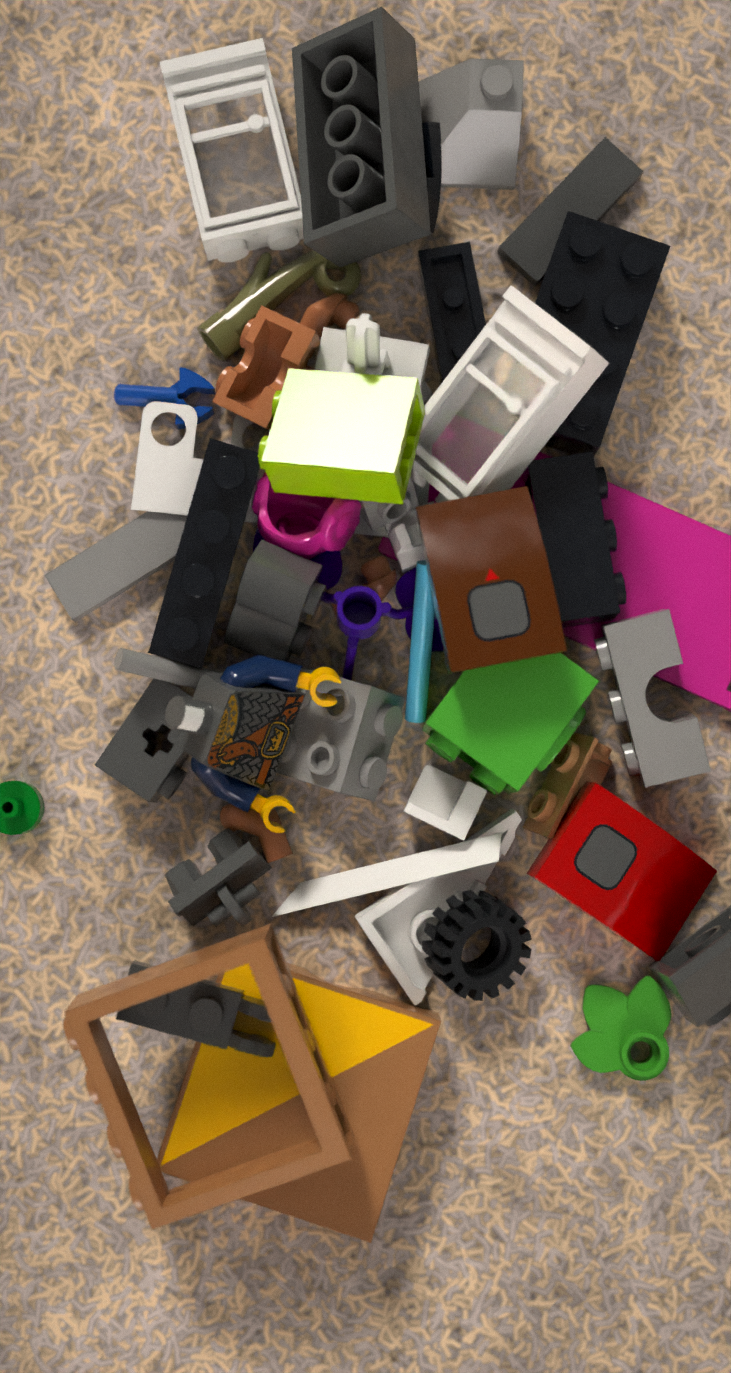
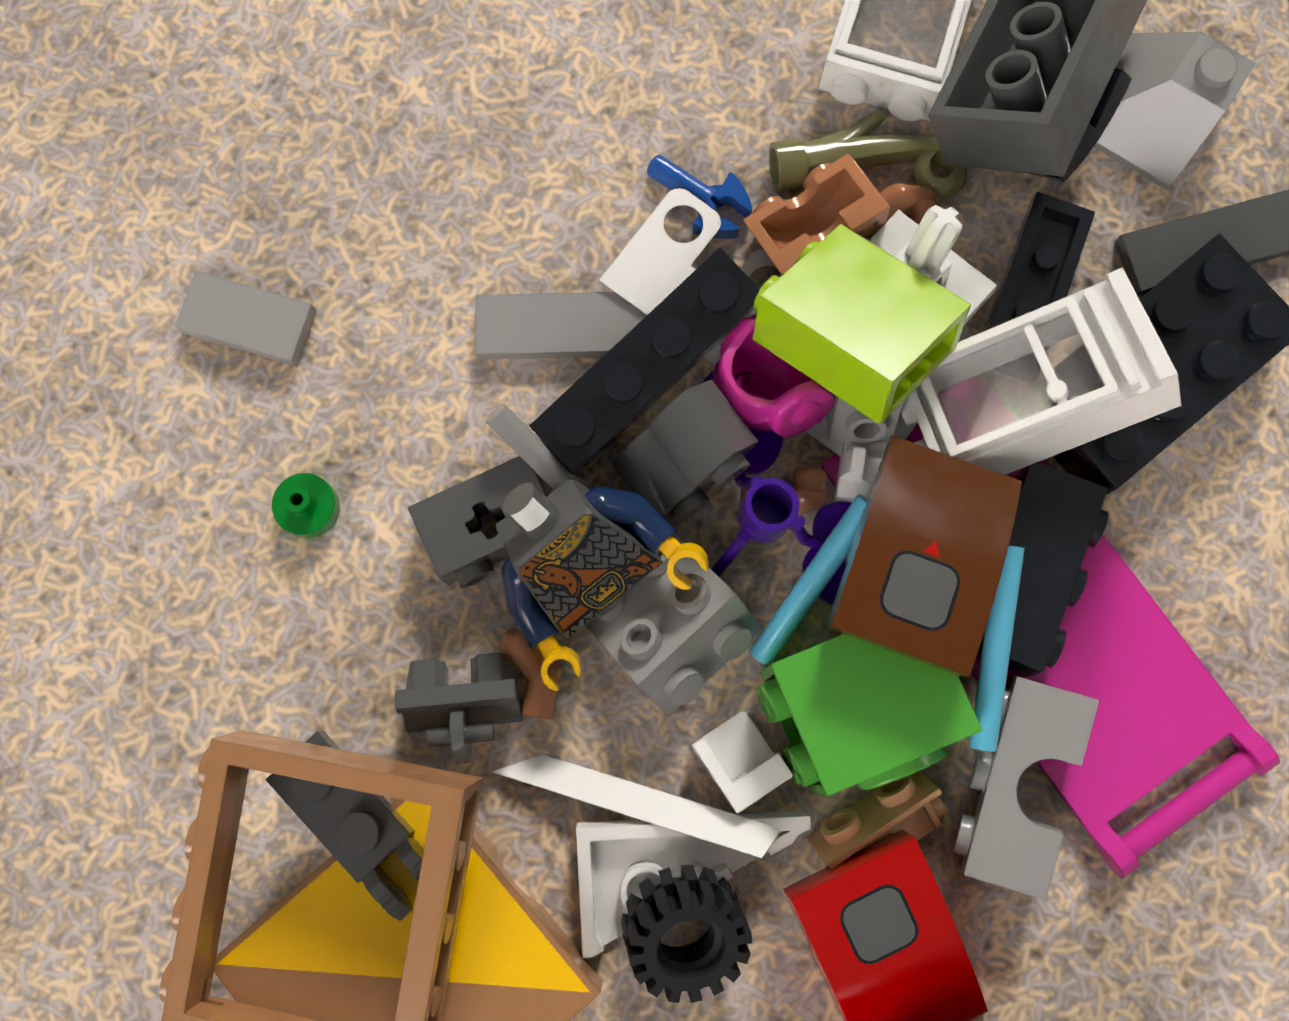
camera: 30 degrees right, 5 degrees down
(578, 616) = (997, 653): none -> medium azure bar

